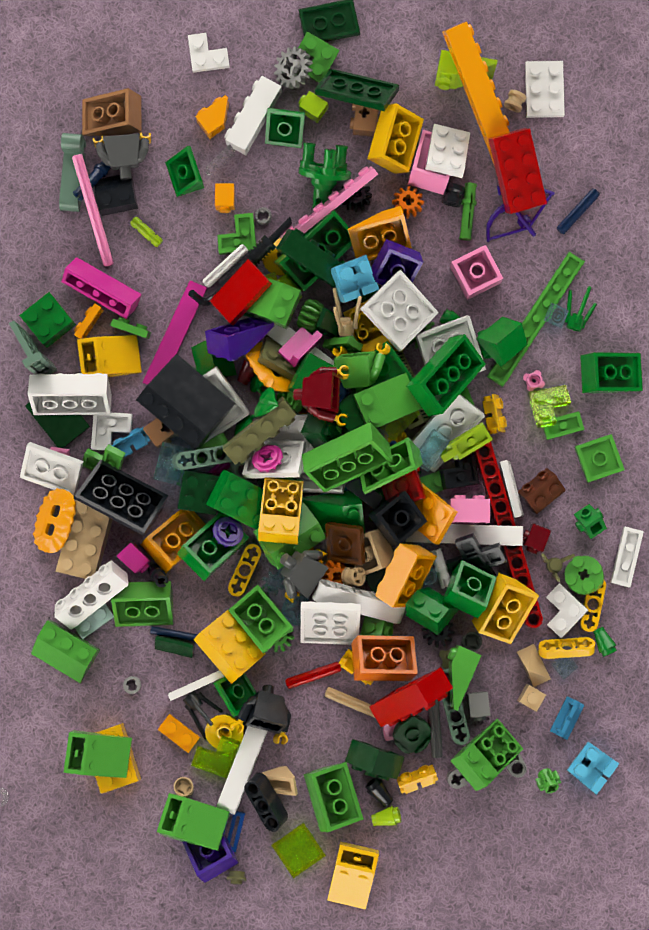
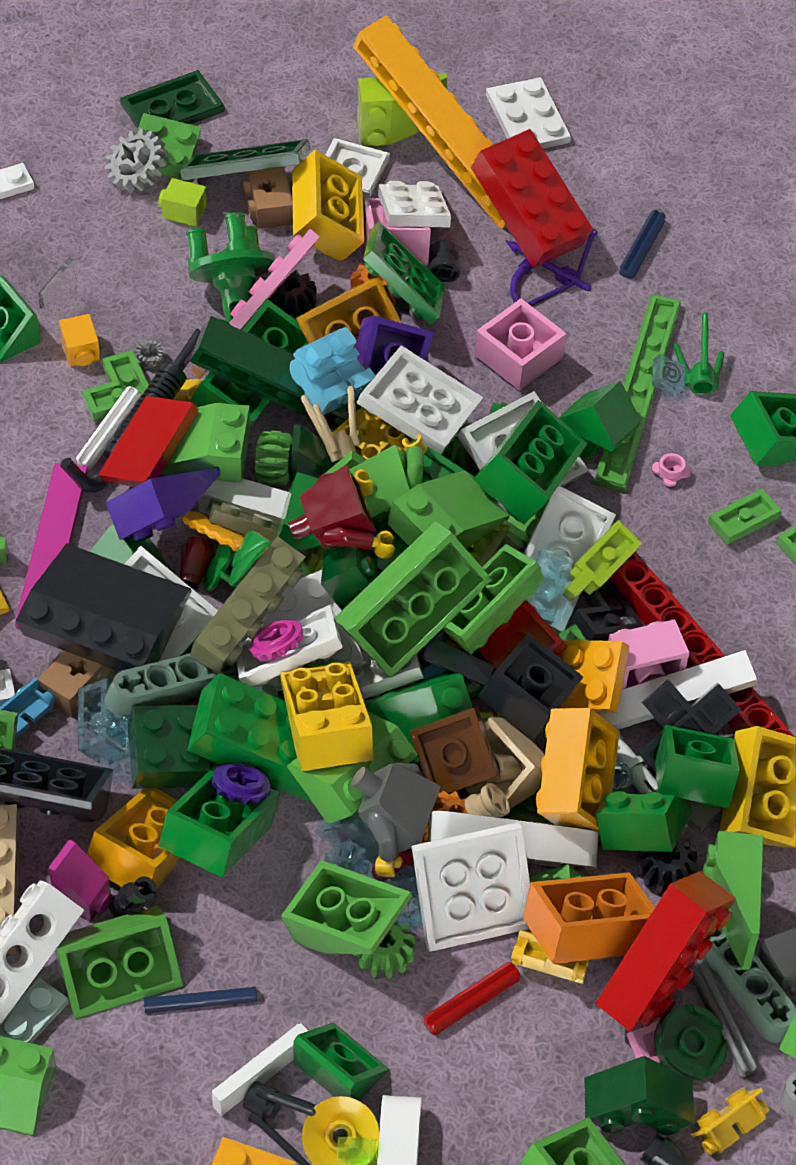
camera: 25 degrees left, 30 degrees down
(137, 682) = (125, 1113): light grey bush -> none
(174, 646) = (197, 1016): dark green slope -> none
(213, 118) = (28, 247): light orange slope -> none
(229, 646) = (302, 978): yellow brick -> none
(244, 585) = (281, 848): yellow beam -> none
(253, 115) = (93, 228): white brick -> none
(265, 712) = (409, 1071): black torso -> none
(285, 127) = (147, 233): green slope -> none
(299, 345) = (270, 492): dark pink panel -> none
(349, 701) = (560, 1024): tan axle -> none
(422, 209) = (404, 273): none -> green plate
(424, 101) = (362, 160): none -> white tile
(468, 211) = (472, 268): bright green pin -> none
(494, 406) = (625, 513): yellow hinge -> none
(512, 489) = (700, 614): white tile -> none
(515, 101) = (492, 128): tan wheel -> none
(536, 538) = (775, 679): dark red brick -> none
(542, 490) = (752, 612): copper bracket -> none
(545, 400) = (706, 491): clear neon green plate -> none

